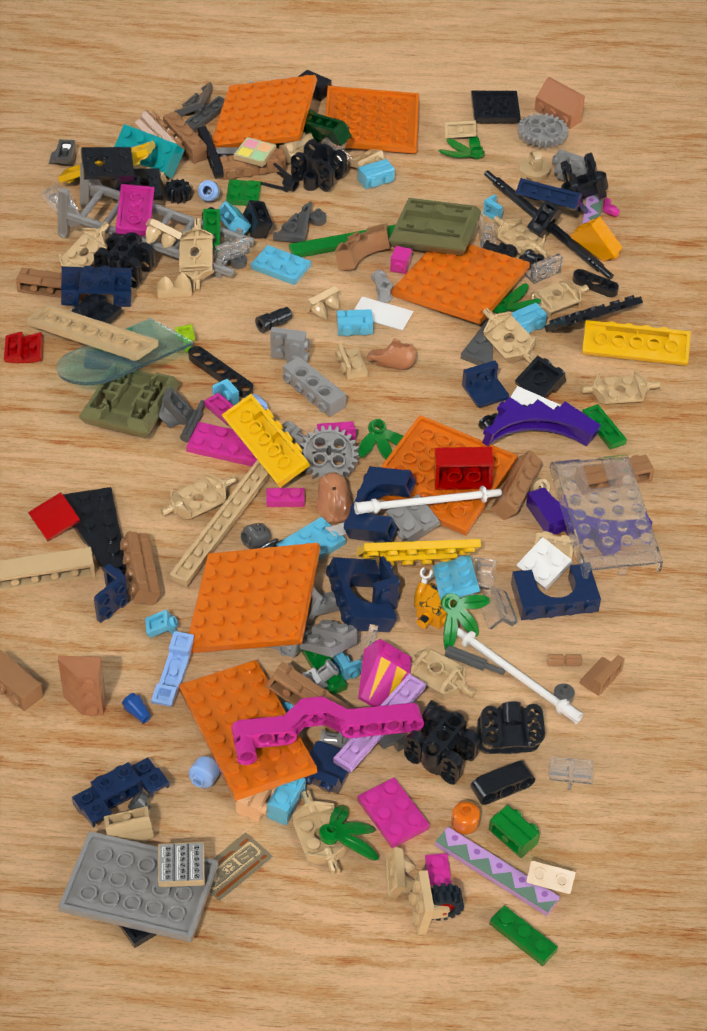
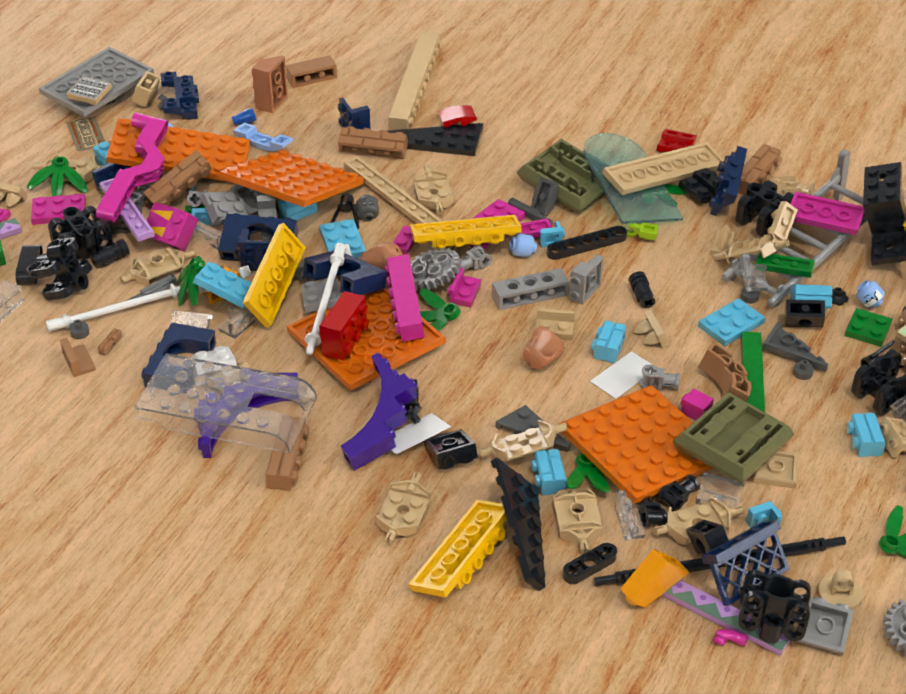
camera: 115 degrees right, 5 degrees down
(160, 623) = (311, 144): medium azure bracket -> none
(177, 191) = (882, 274): black gear -> none
(390, 449) = (404, 298): none -> dark pink brick
(465, 817) = (16, 233): orange head -> none
(483, 385) = (465, 405): dark blue bracket -> none
(517, 485) = (316, 374): medium nougat brick -> none
(608, 431) = (357, 473): green plate -> none

